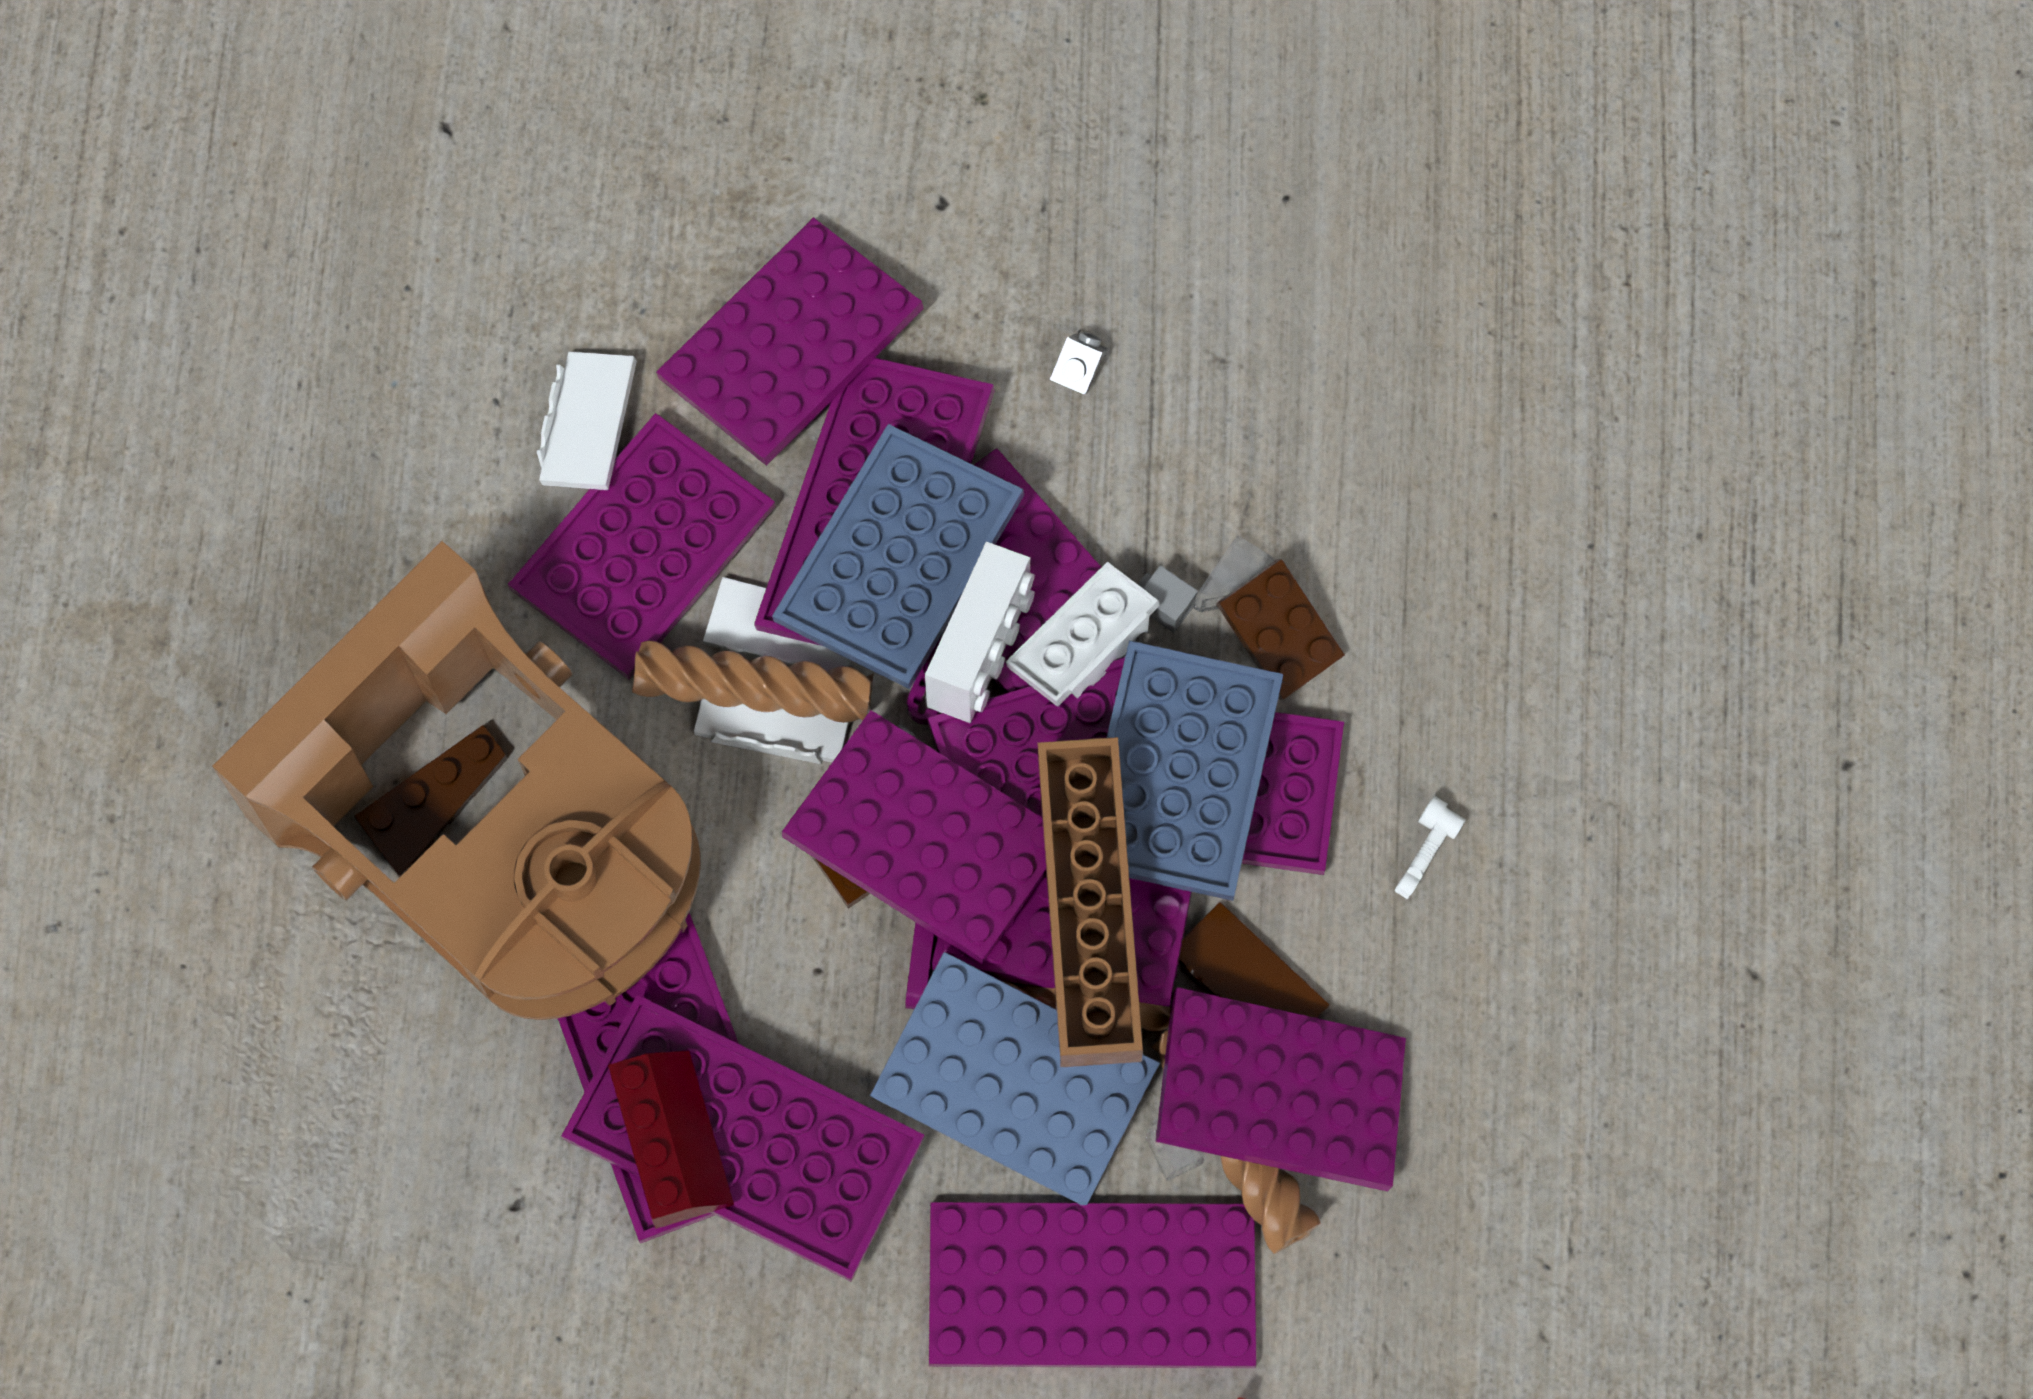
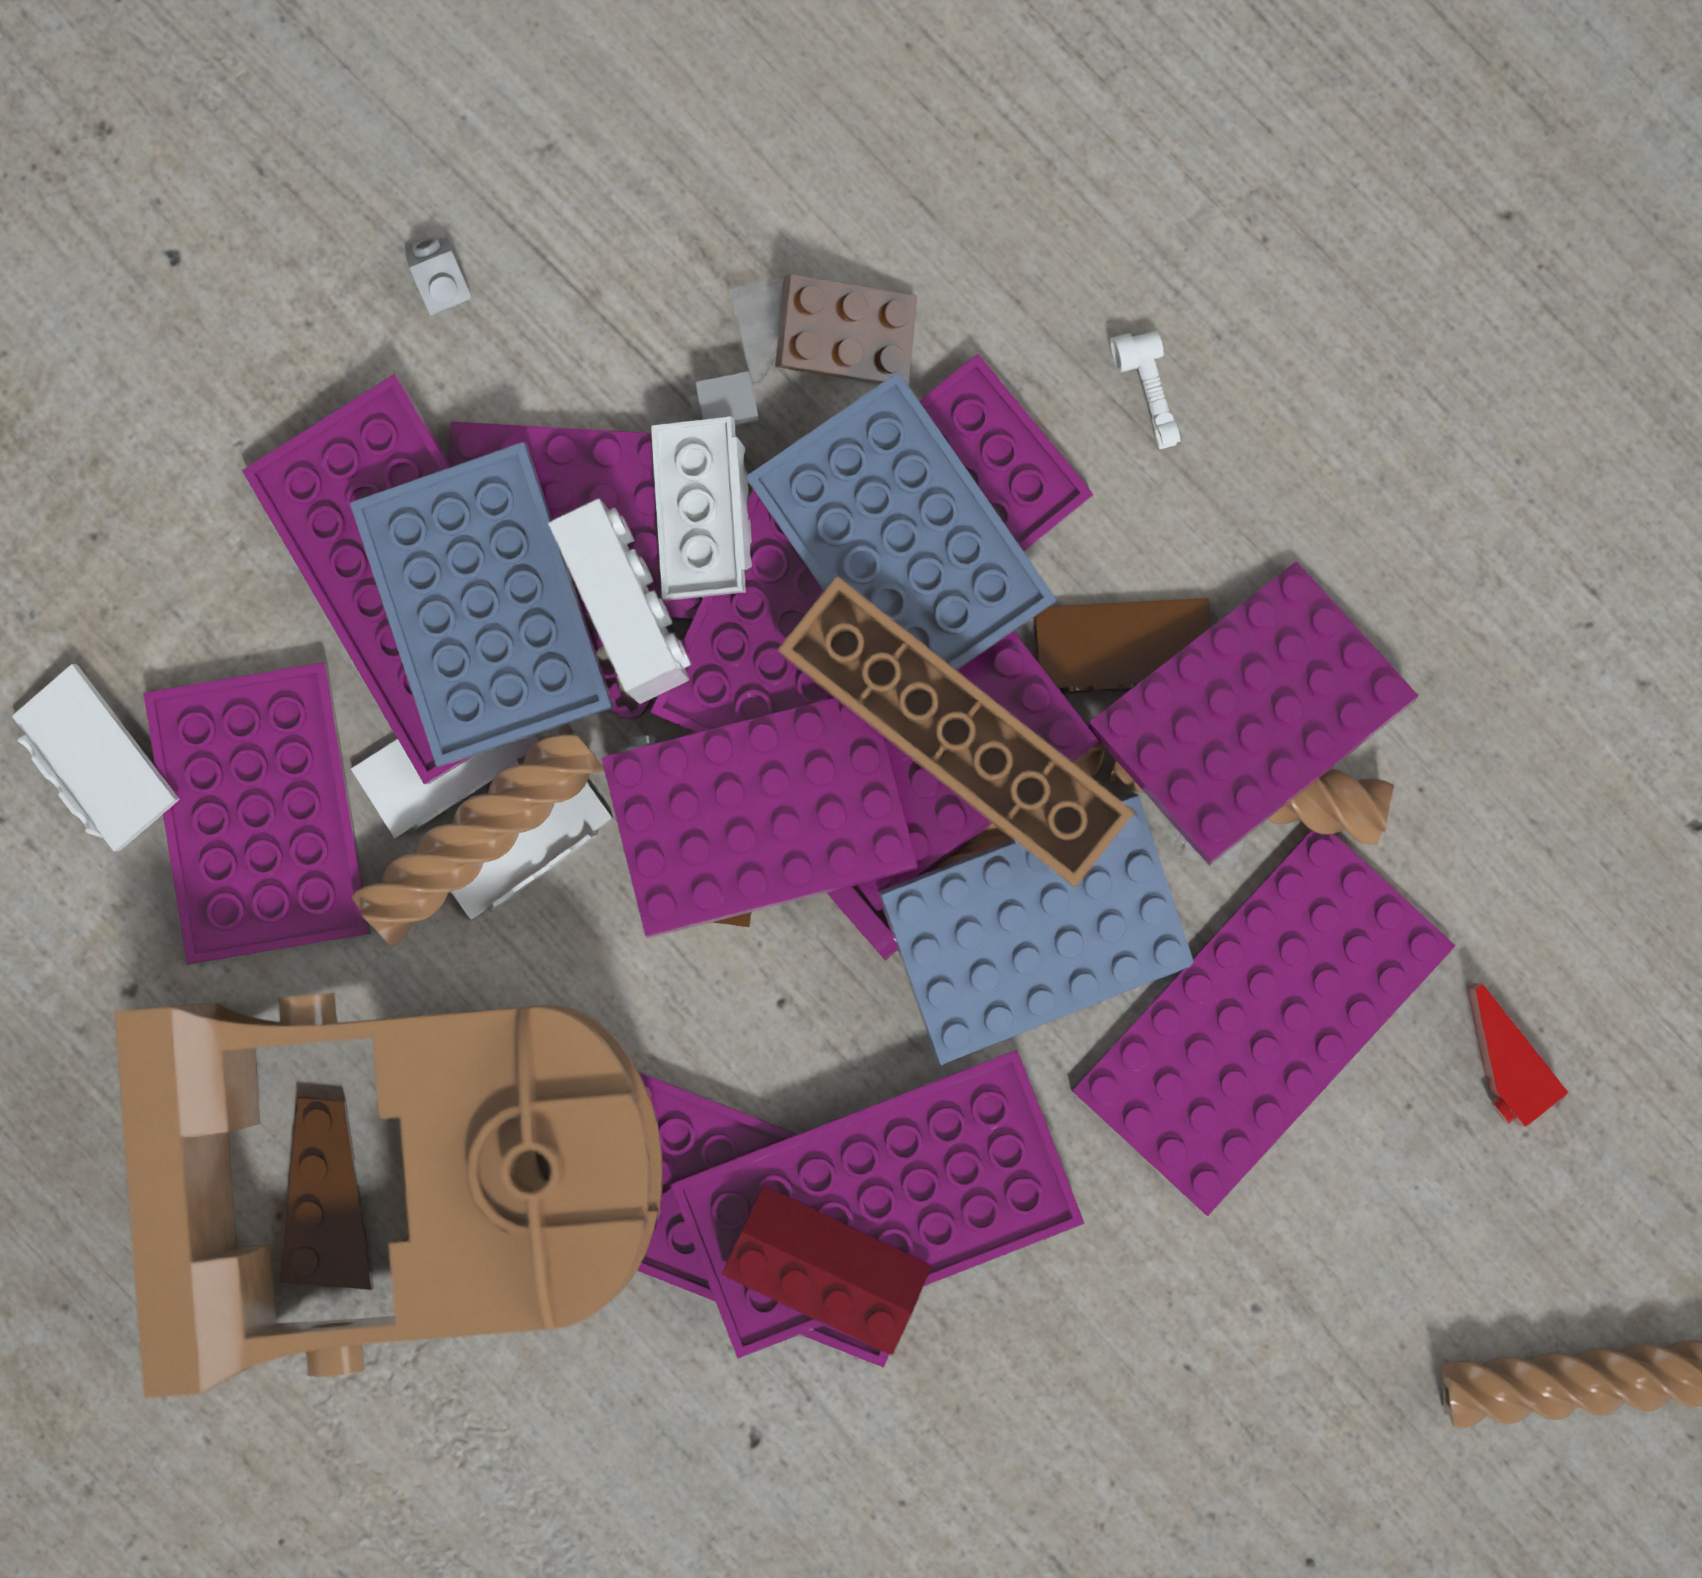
camera: 45 degrees left, 15 degrees up
(790, 341) = (183, 511): magenta plate -> none

